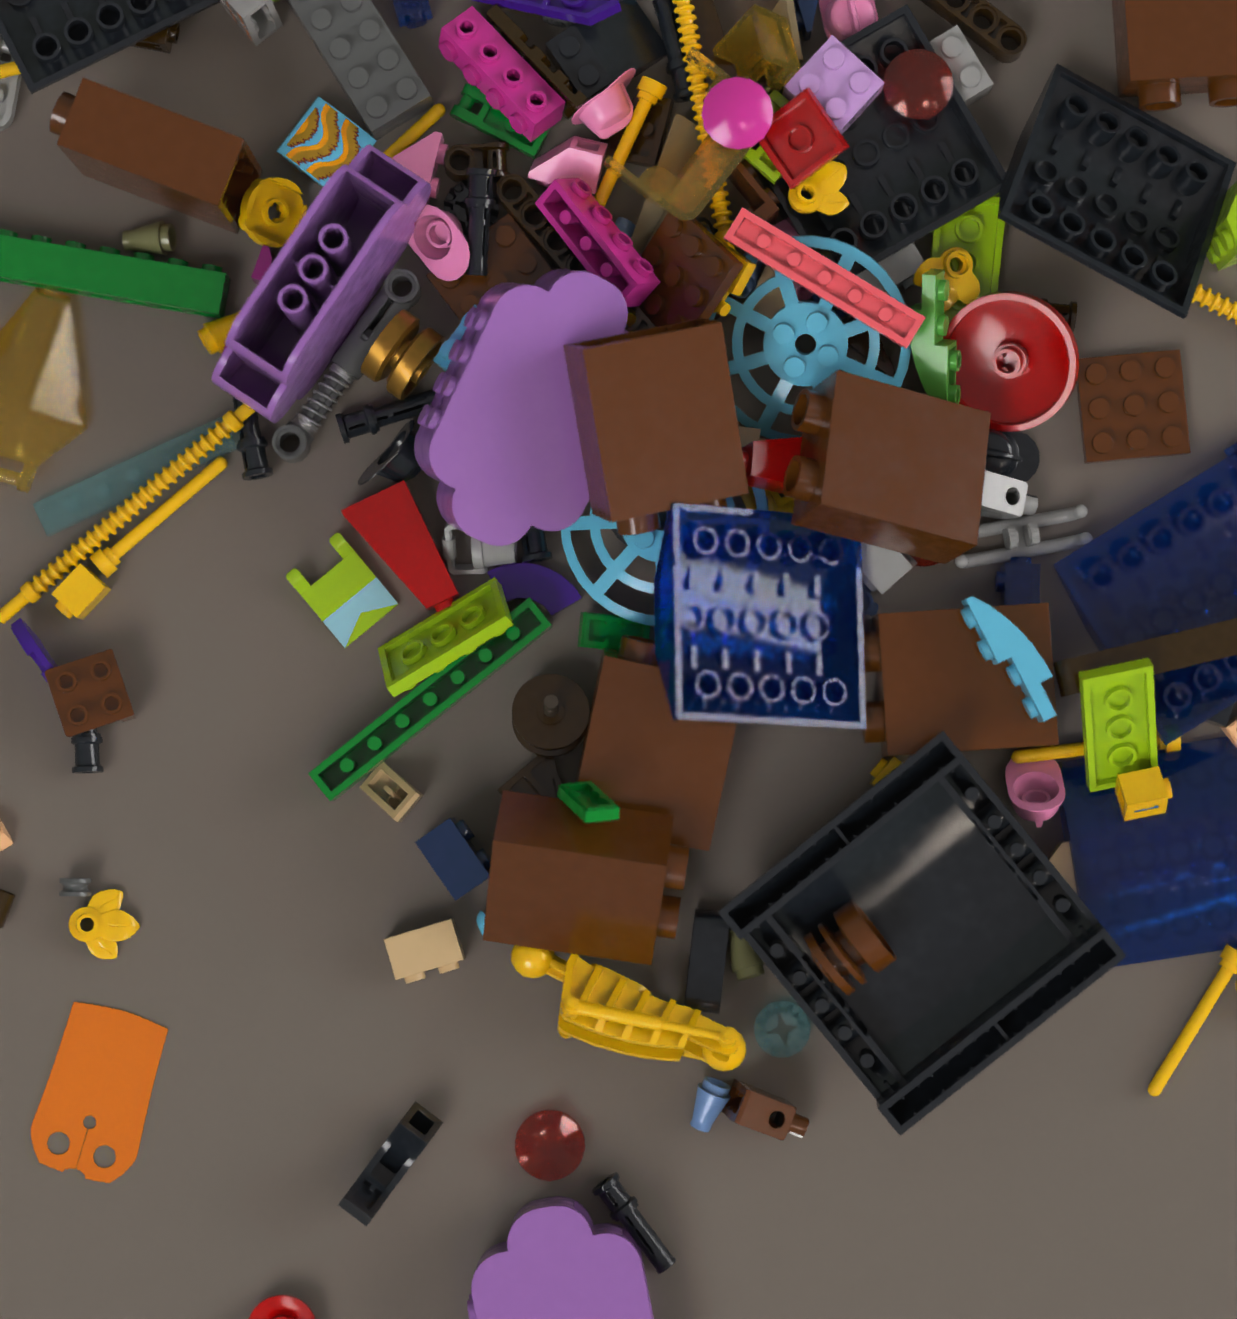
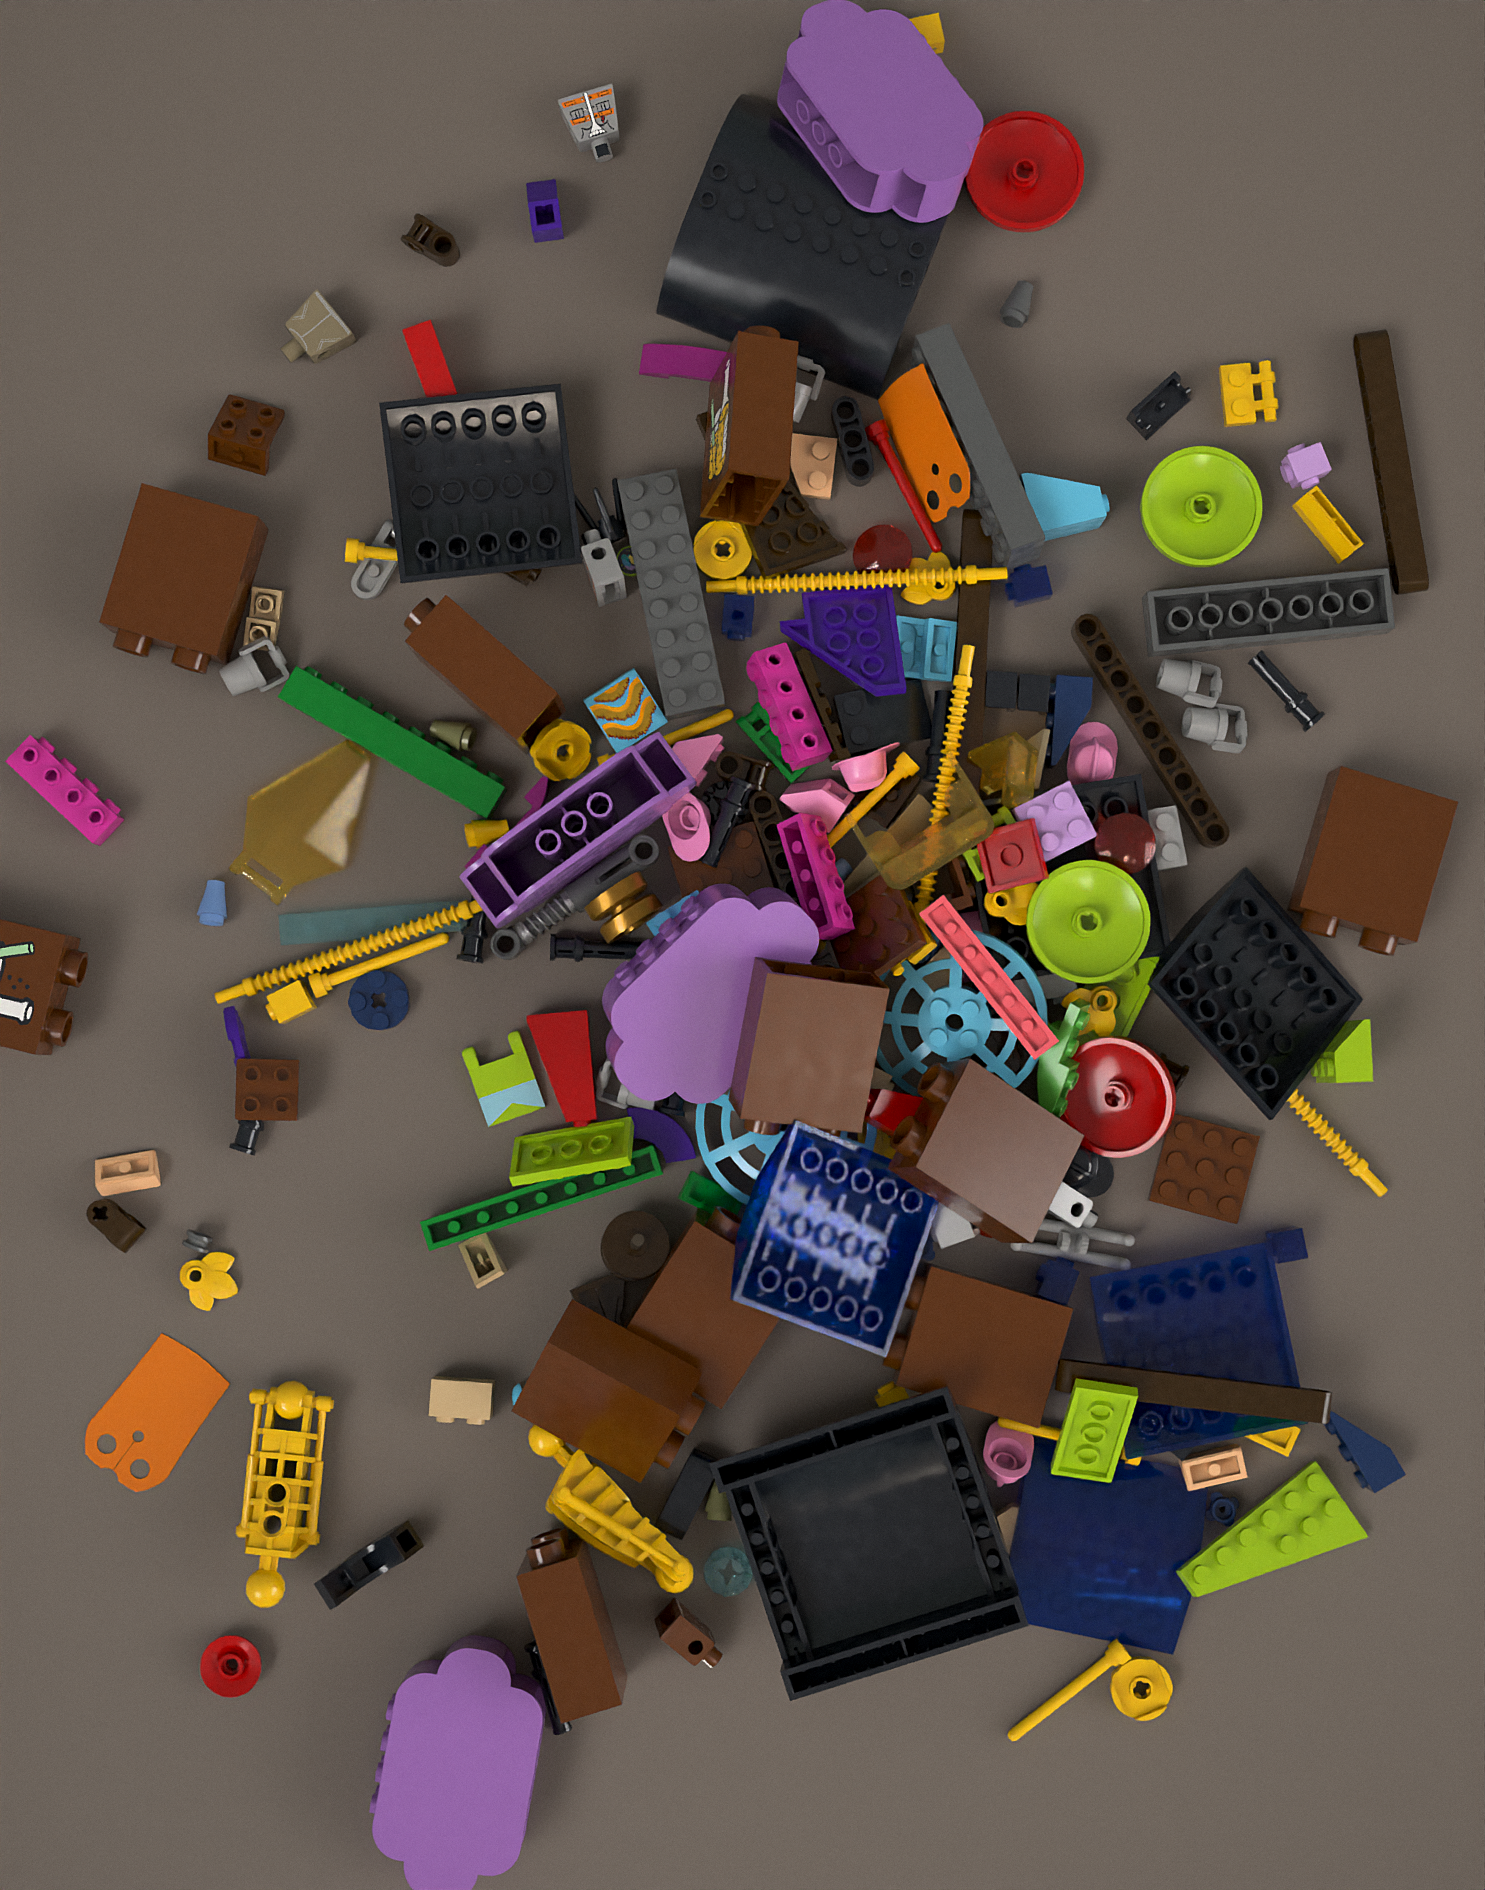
camera: 15 degrees right, 0 degrees up
(165, 538) = (396, 997): none -> dark blue plate
(240, 1021) = (290, 1401): none -> yellow piece
(398, 460) = (587, 989): black piece -> none
(455, 857) = (514, 1334): dark blue brick -> none
(549, 1145) = (499, 1597): clear red dish -> none
(588, 802) = (637, 1336): green plate -> none
(633, 1143) = (571, 1625): none -> reddish brown brick
(709, 1102) = (647, 1609): medium blue cone -> none
(737, 113) = (967, 819): dark pink dish -> none
(849, 947) = (806, 1530): reddish brown wheel -> none
(909, 180) = (1088, 922): none -> lime dish
(1005, 641) = (1025, 1330): medium azure slope -> none
(1142, 793) = (1093, 1492): yellow brick -> none

